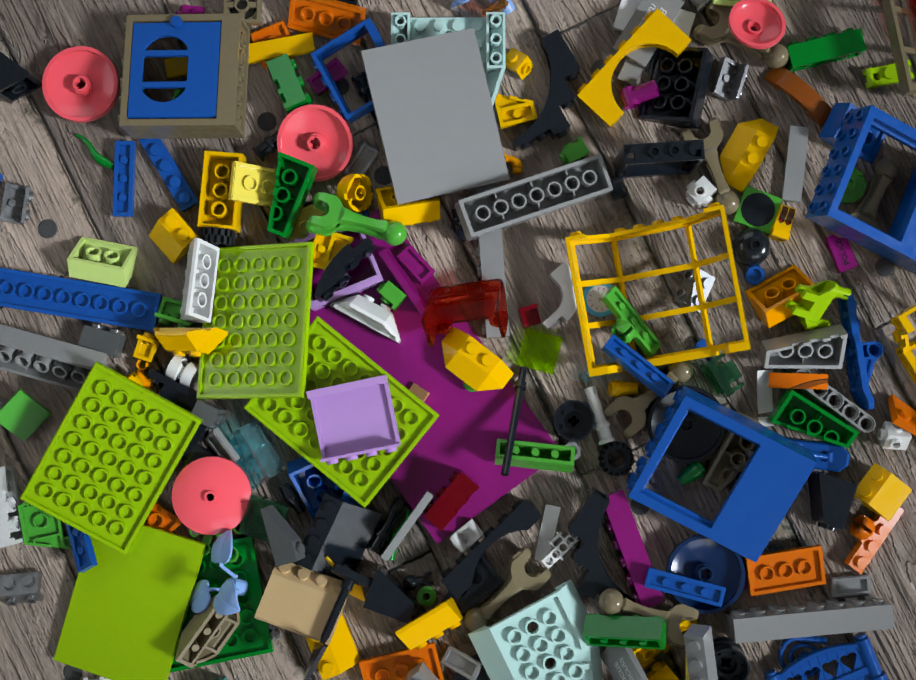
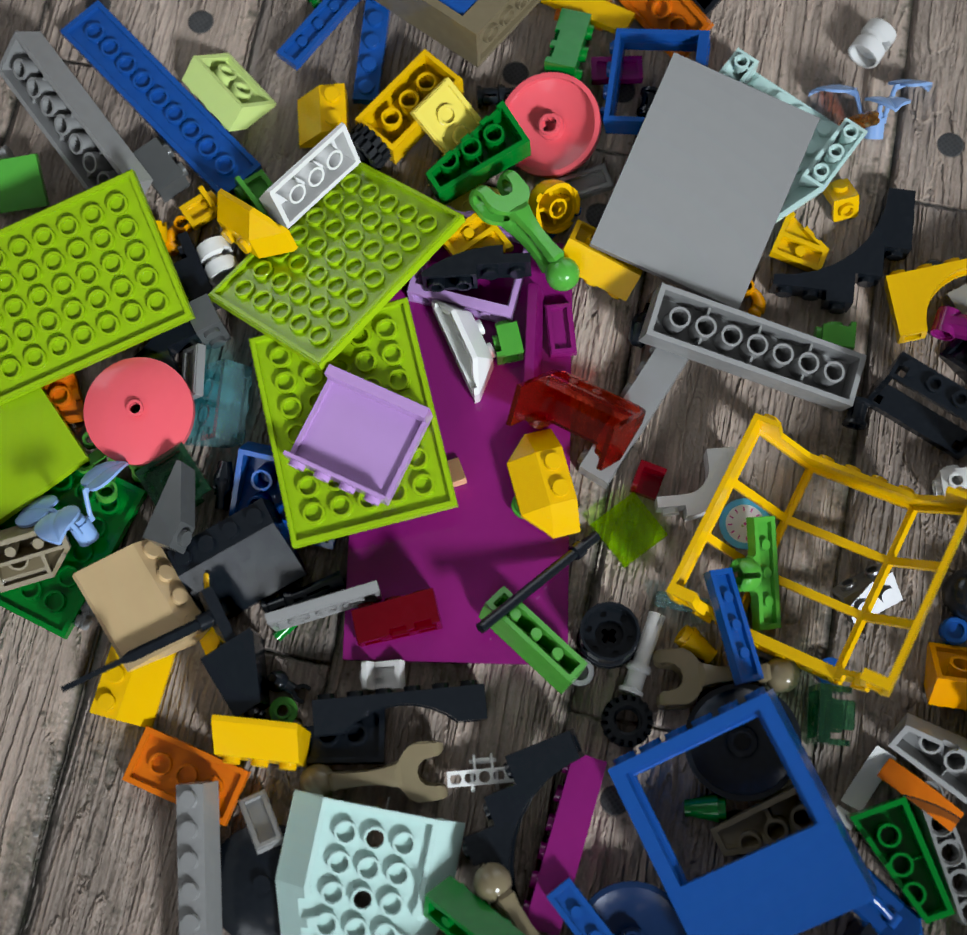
camera: 40 degrees right, 10 degrees down
(547, 531) = (480, 745): white sticker -> none

